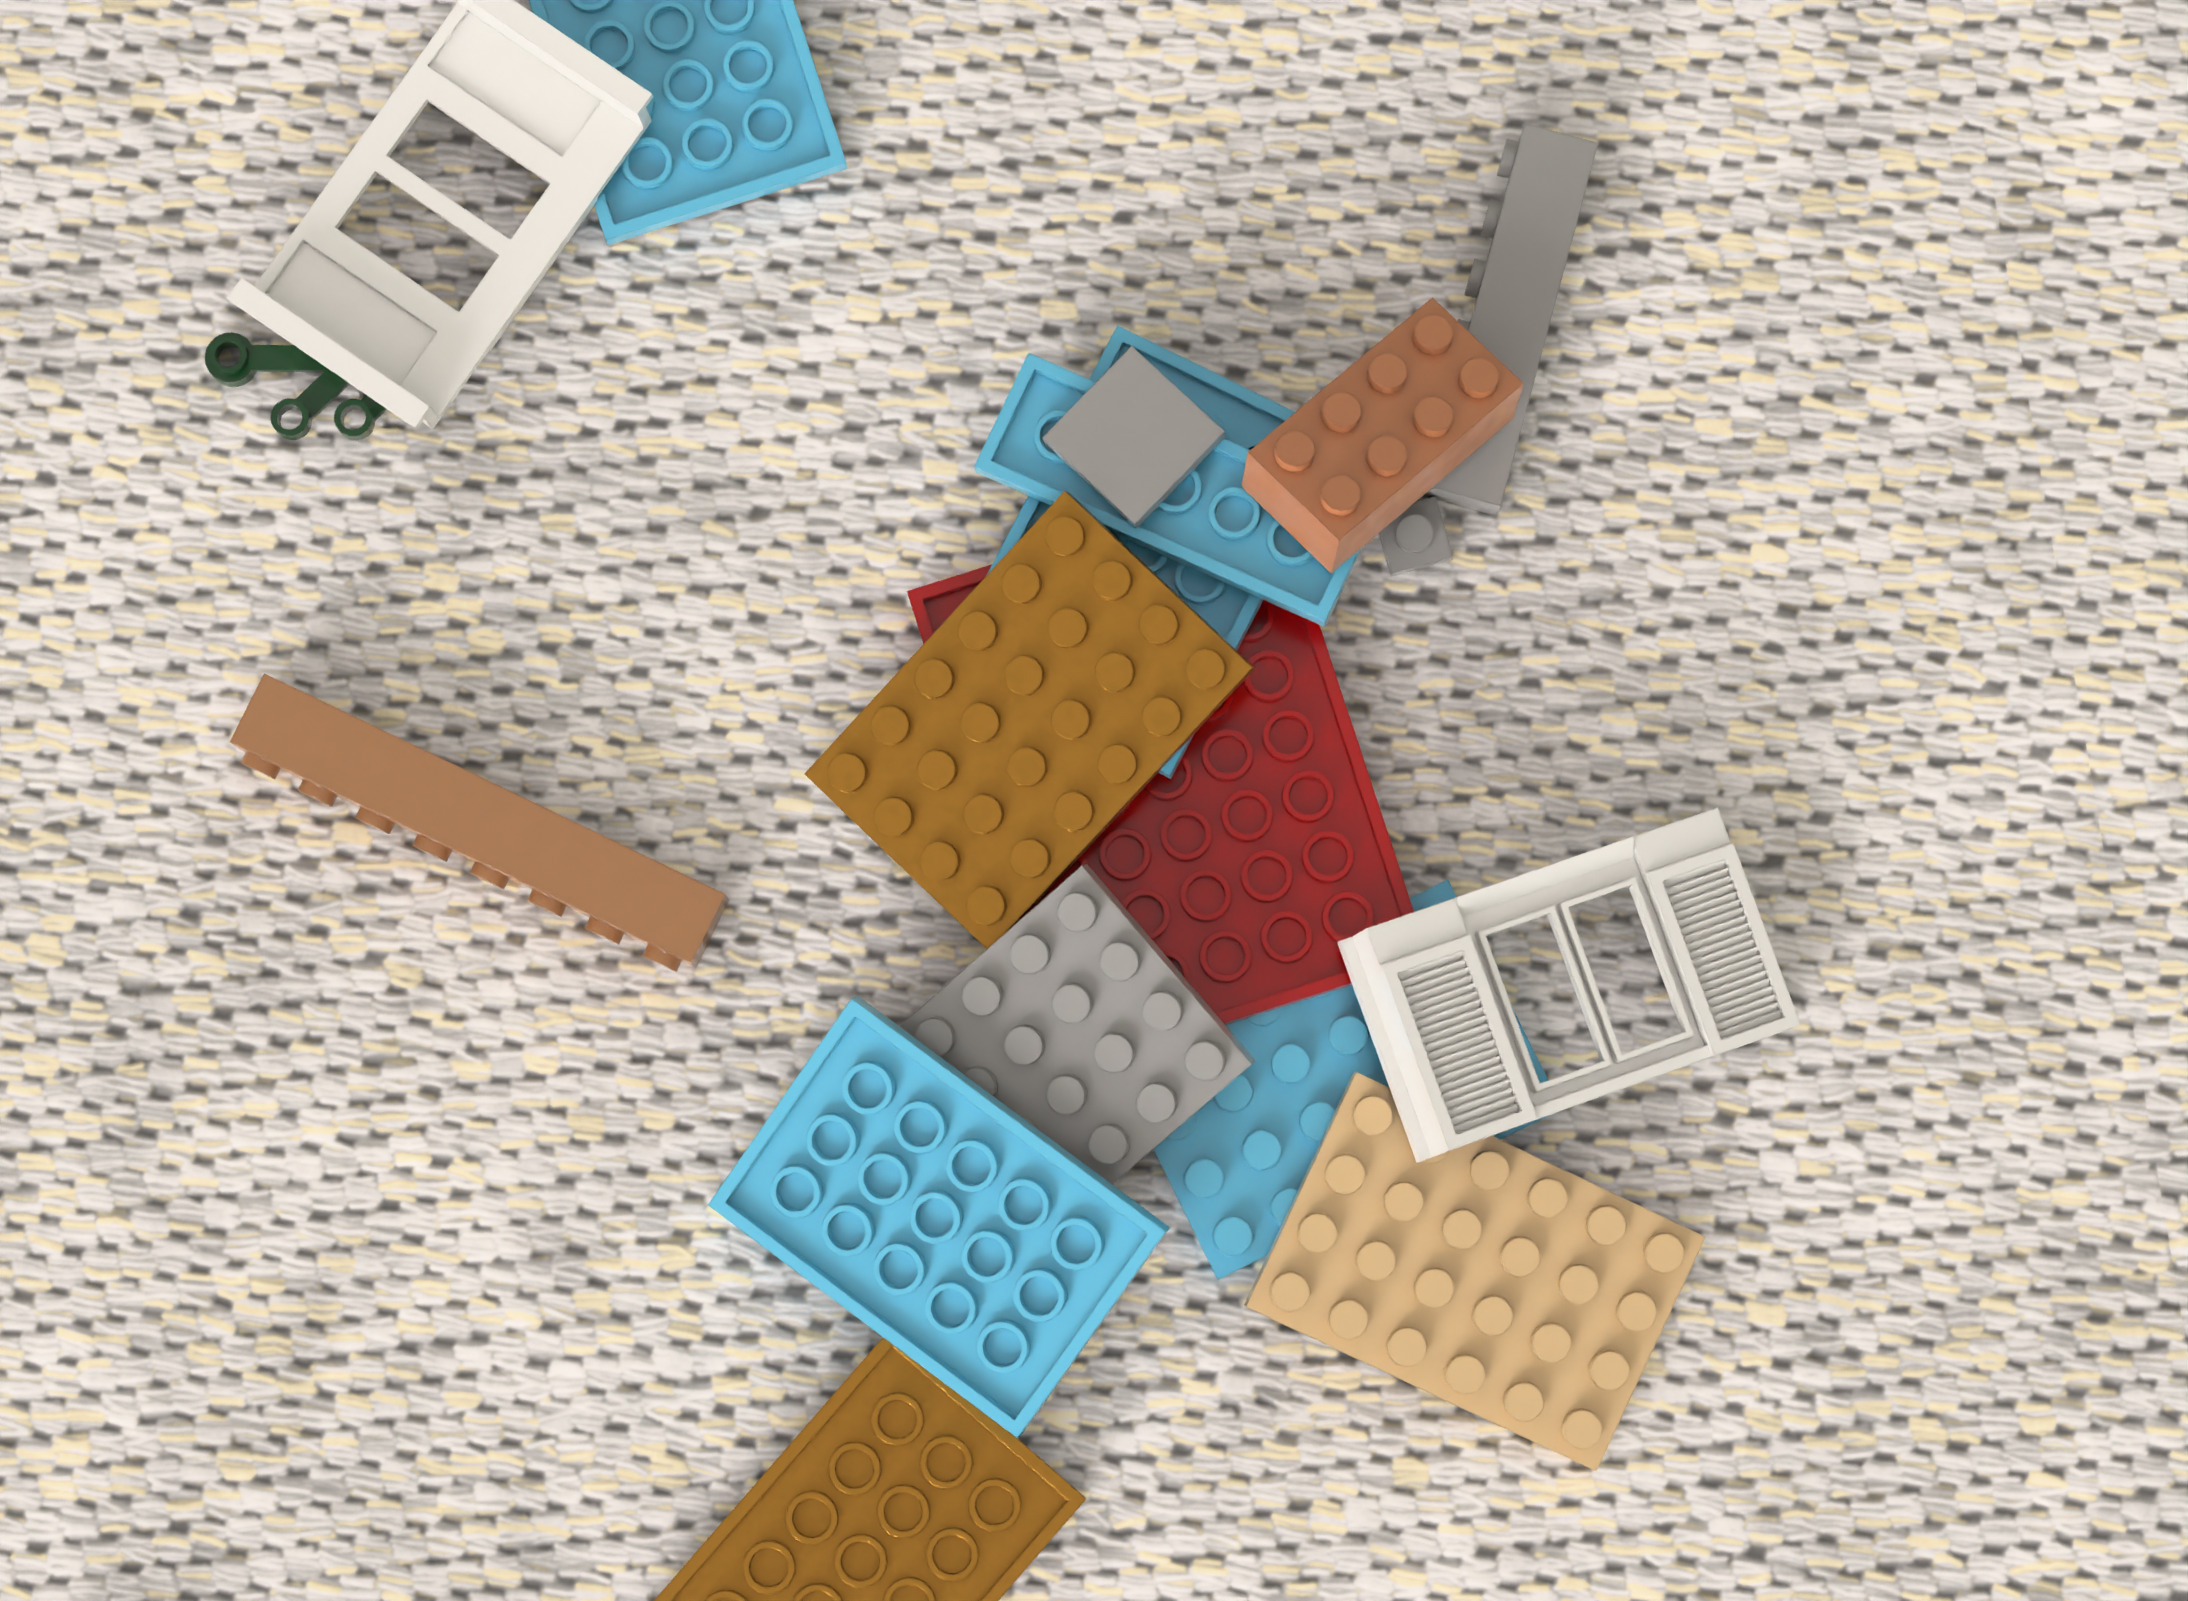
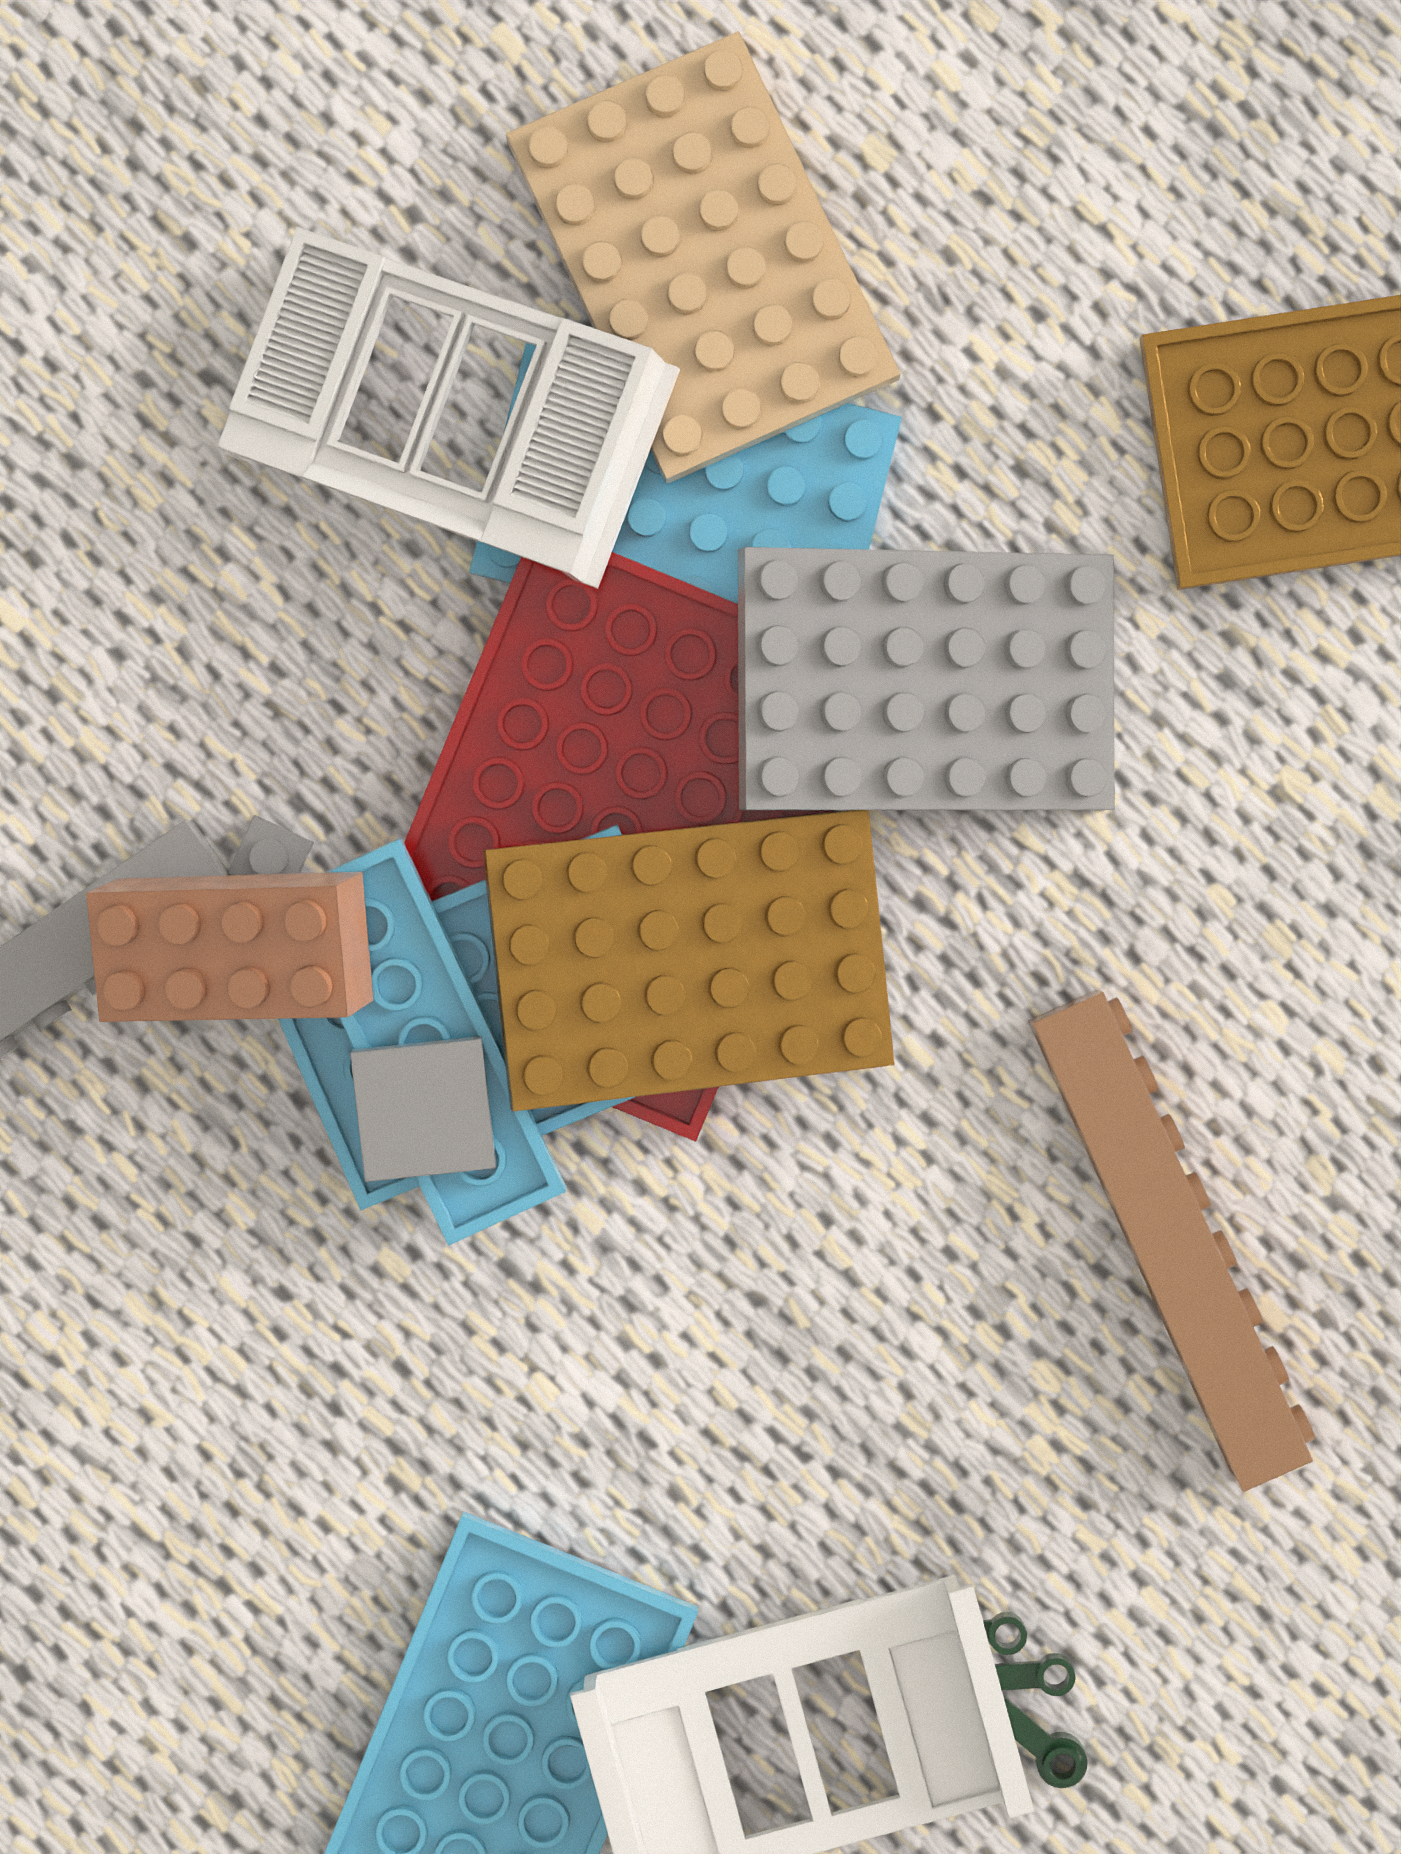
camera: 140 degrees left, 5 degrees up
(938, 1216) = (1077, 638): medium azure plate -> none

